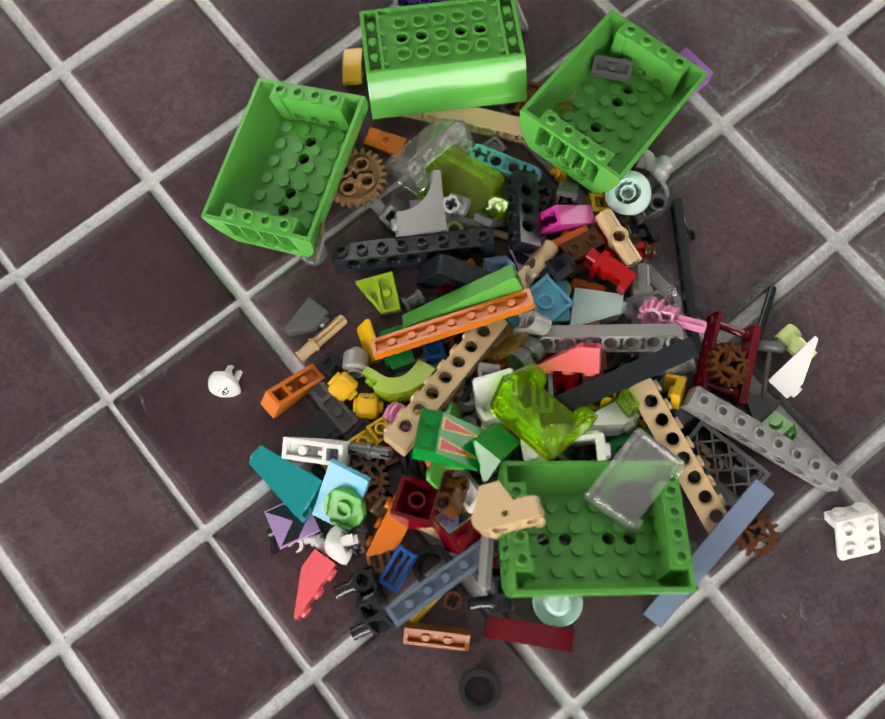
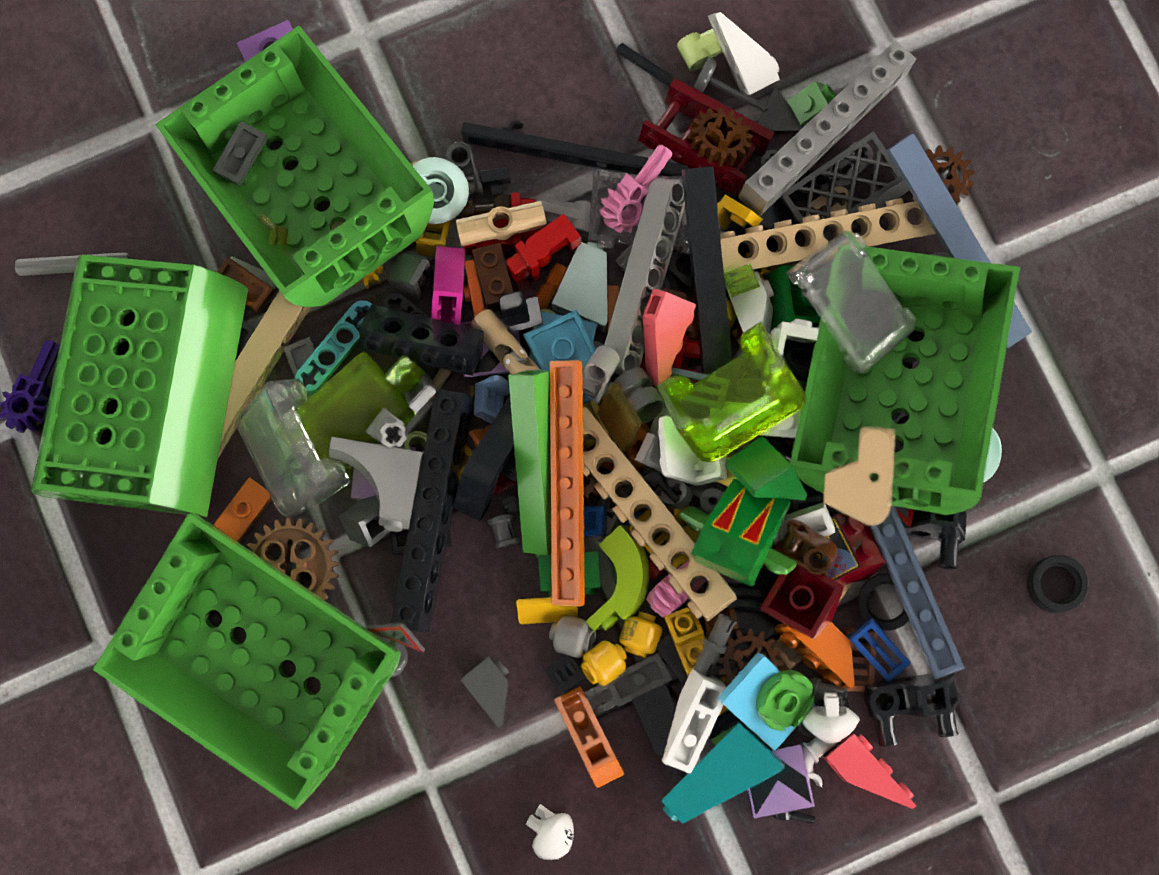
camera: 75 degrees left, 5 degrees up
(319, 339) = (528, 690): tan axle -> none
(352, 66) = (106, 525): yellow slope -> none
(382, 292) = (478, 573): lime wing -> none
(436, 636) = (978, 620): dark orange plate -> none
(446, 597) = (939, 581): reddish brown bush -> none
(485, 563) = (906, 528): light grey axle -> none
(529, 633) = (1000, 501): dark red slope -> none
(649, 249) = (522, 186): reddish brown bush -> none
(658, 167) = (411, 137): light grey animal -> none
(855, 530) = (964, 54): white bracket -> none

